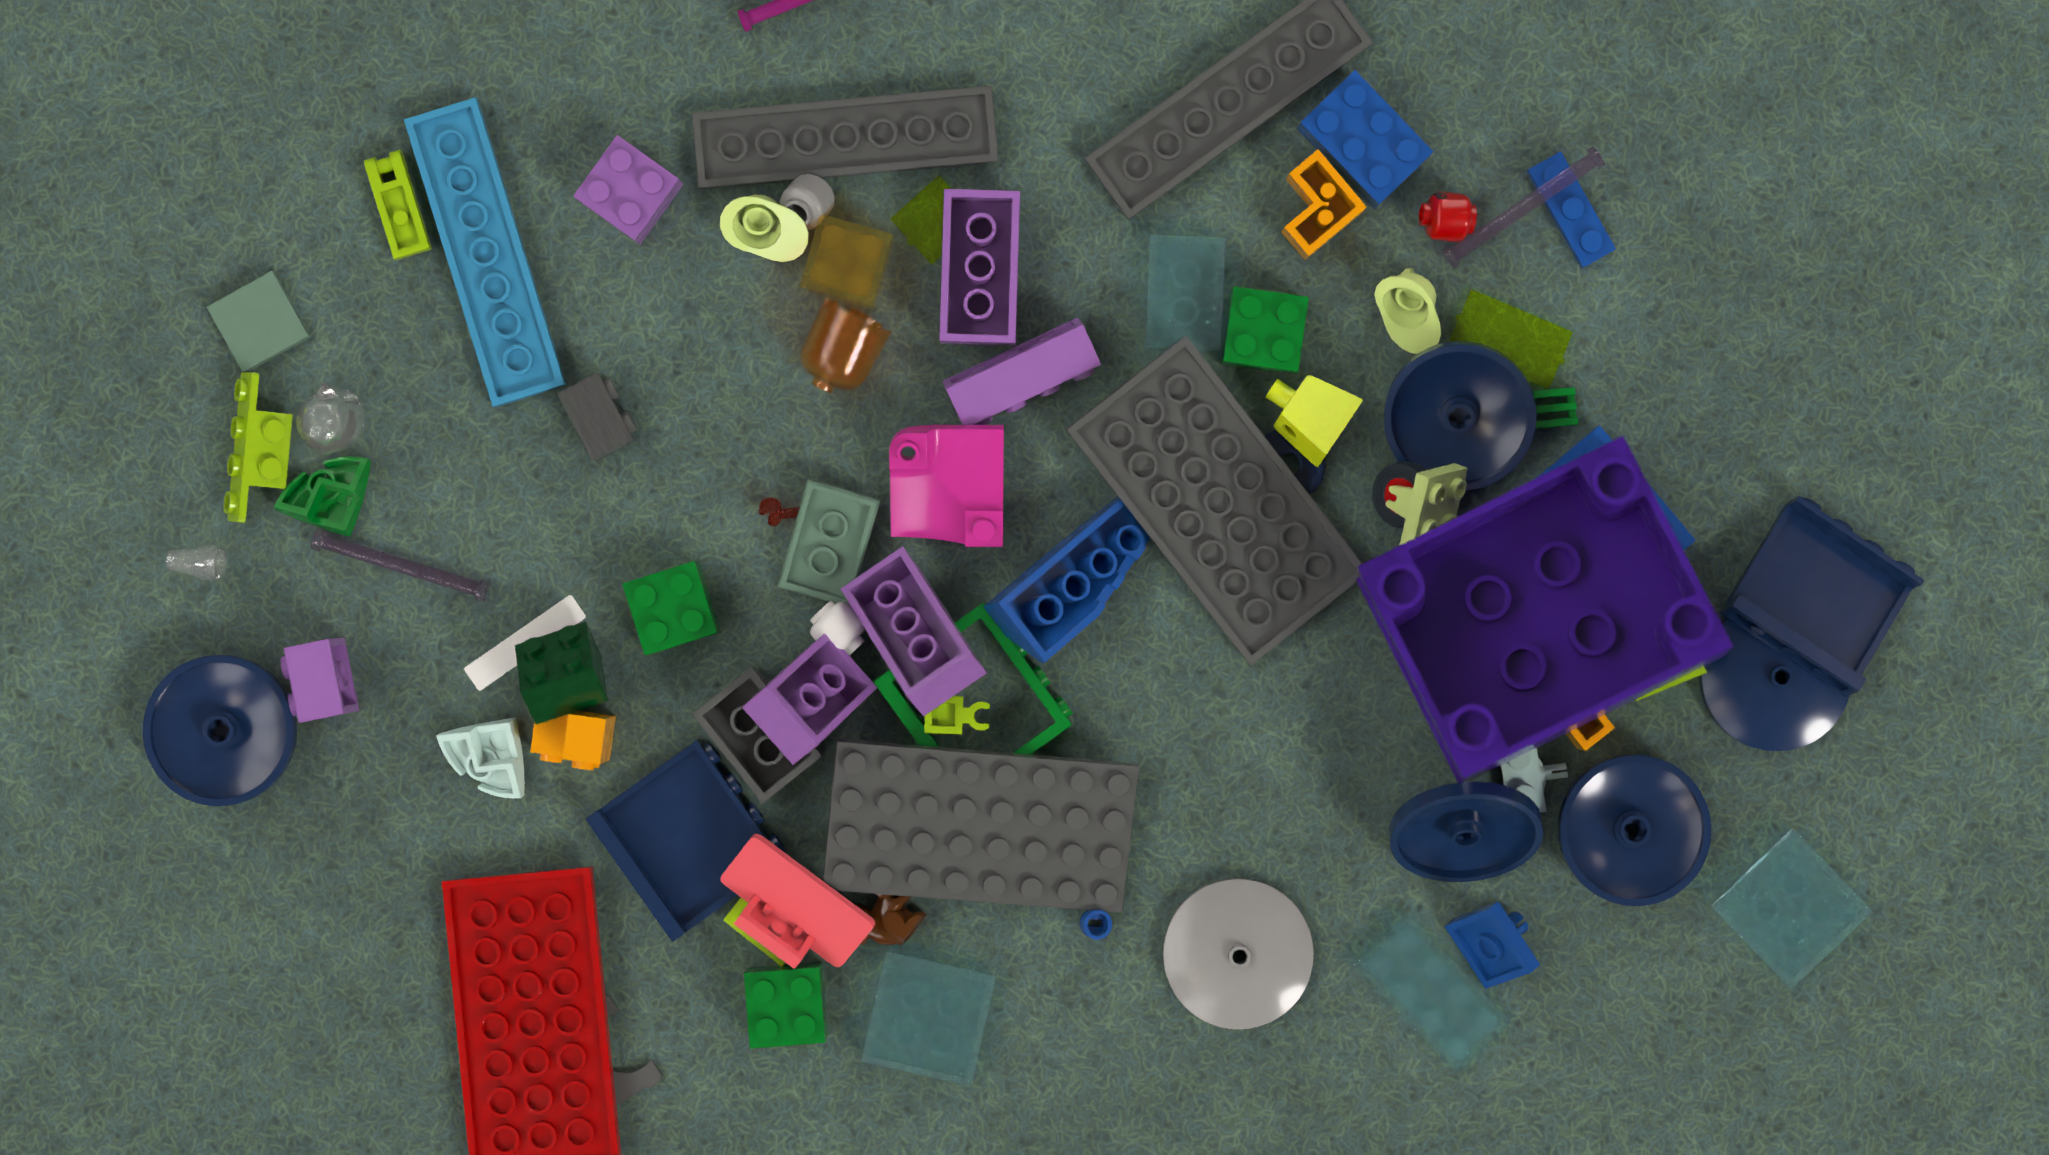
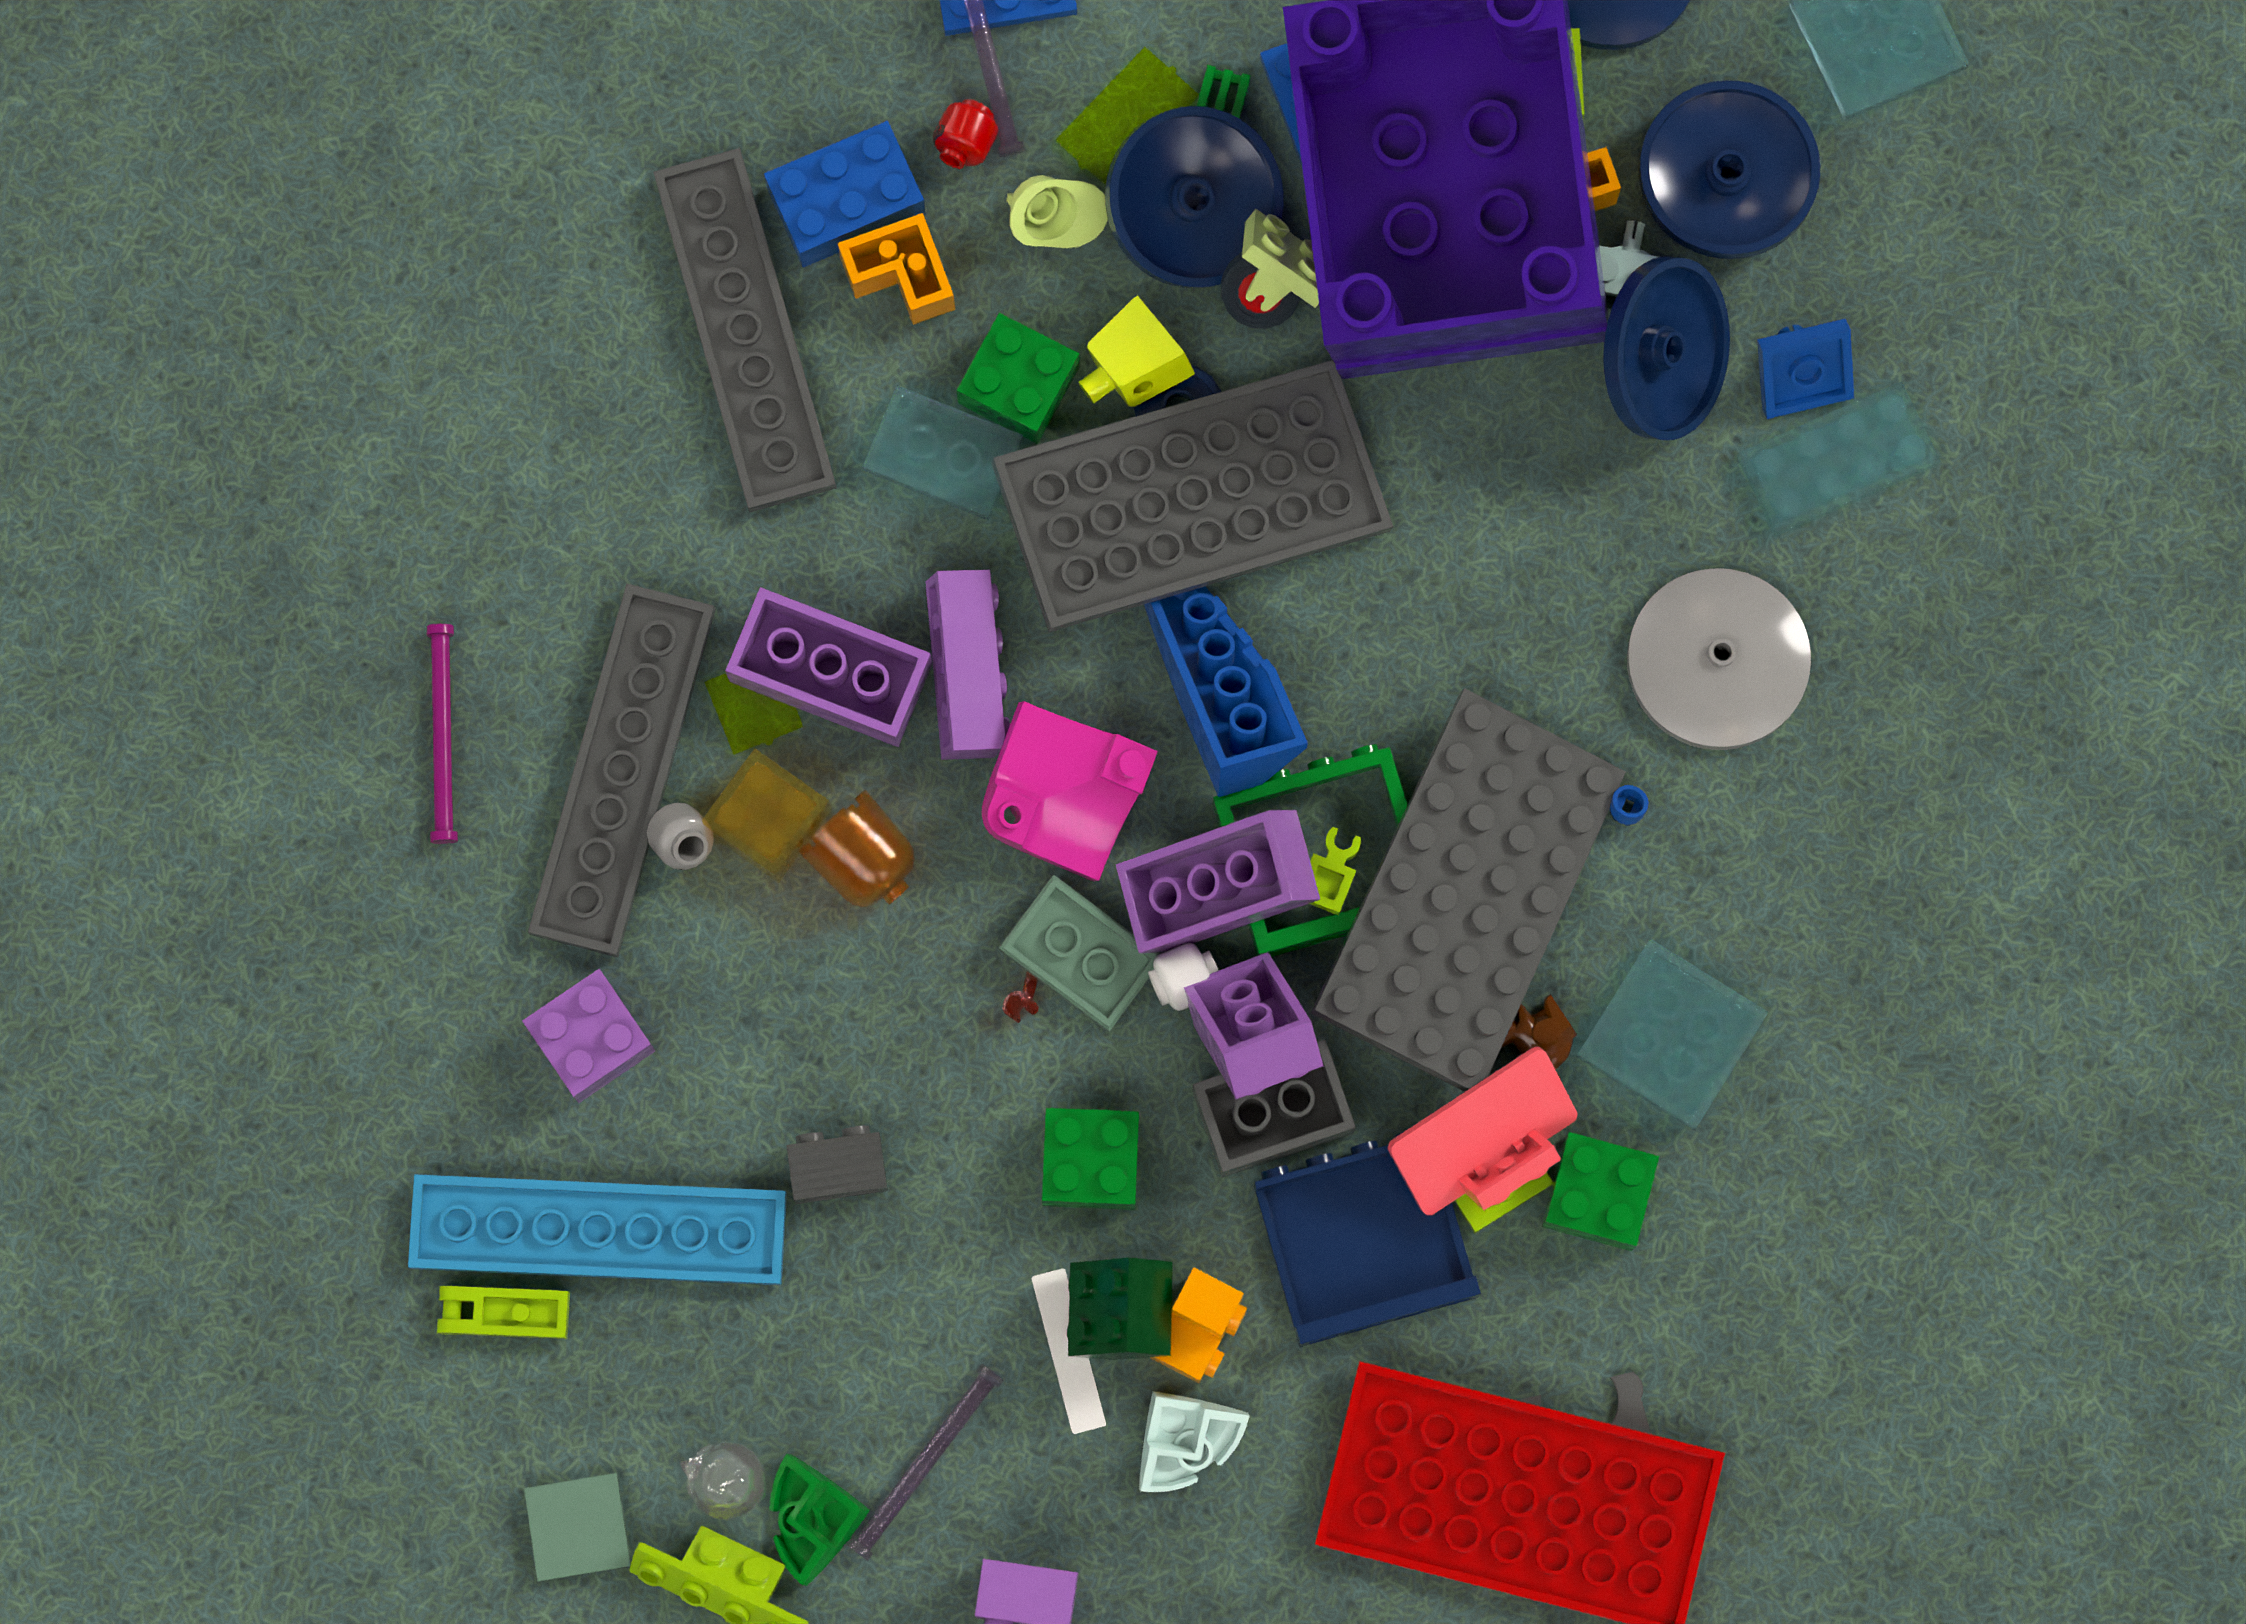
camera: 70 degrees left, 10 degrees down
(764, 228) = (693, 893): yellowish green piece -> none

